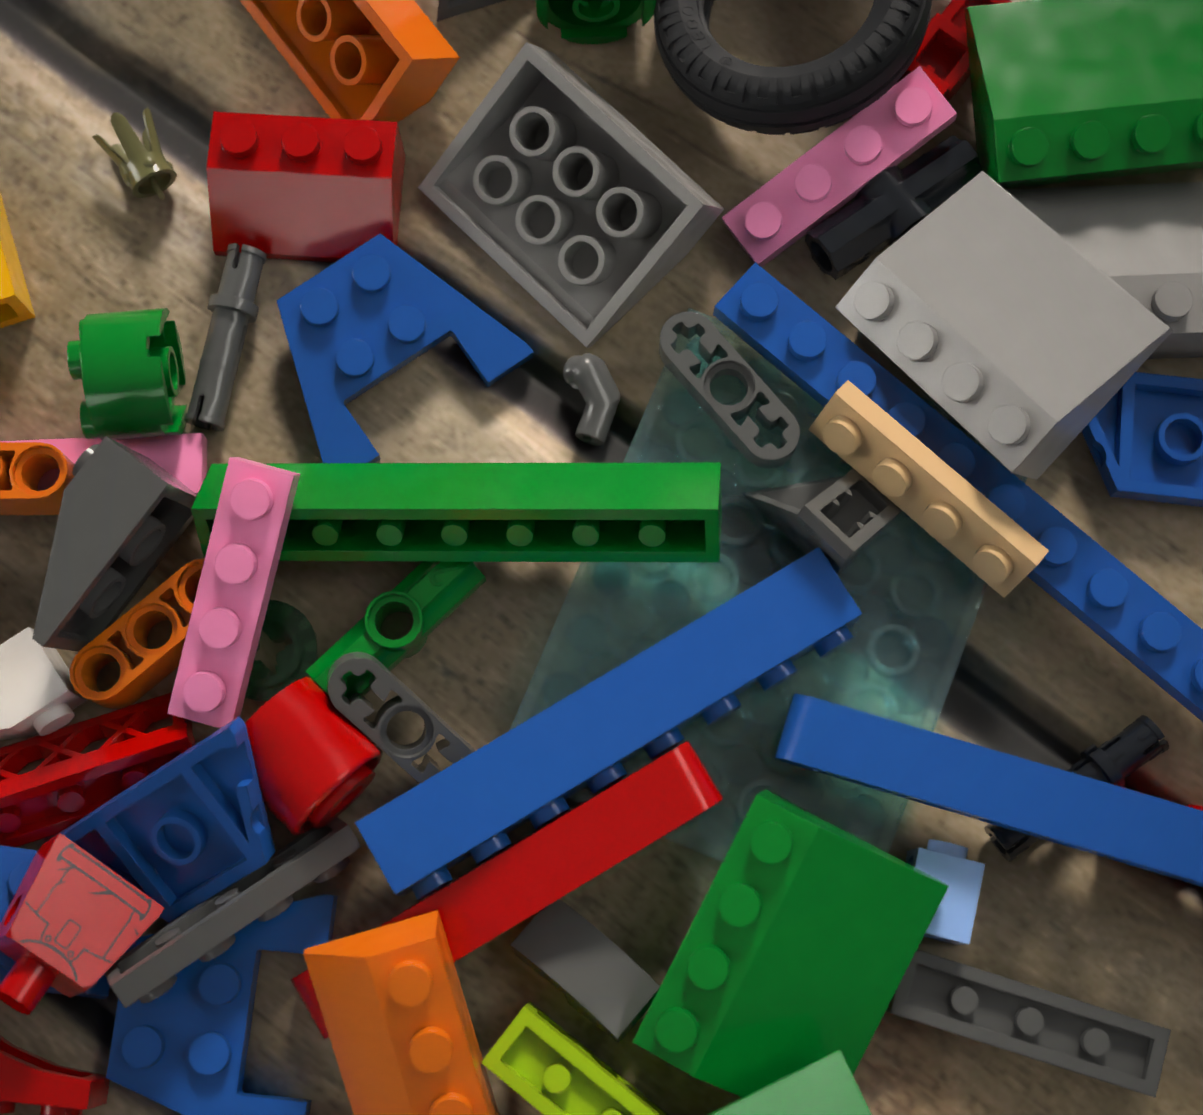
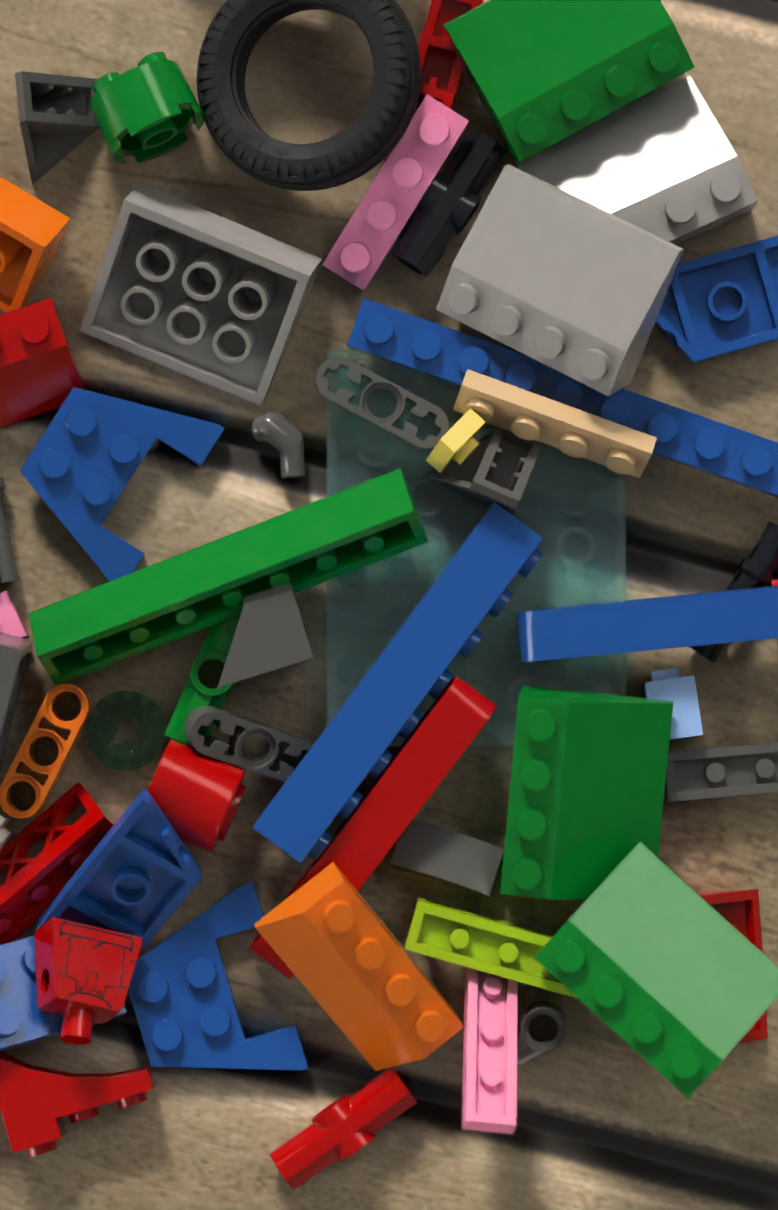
camera: 25 degrees left, 10 degrees up
(210, 926) = (180, 935): dark grey plate -> none
(233, 592) = (94, 703): bright pink plate -> none
(476, 599) = (266, 636): none -> dark grey slope
(800, 462) = (457, 443): none -> light yellow plate

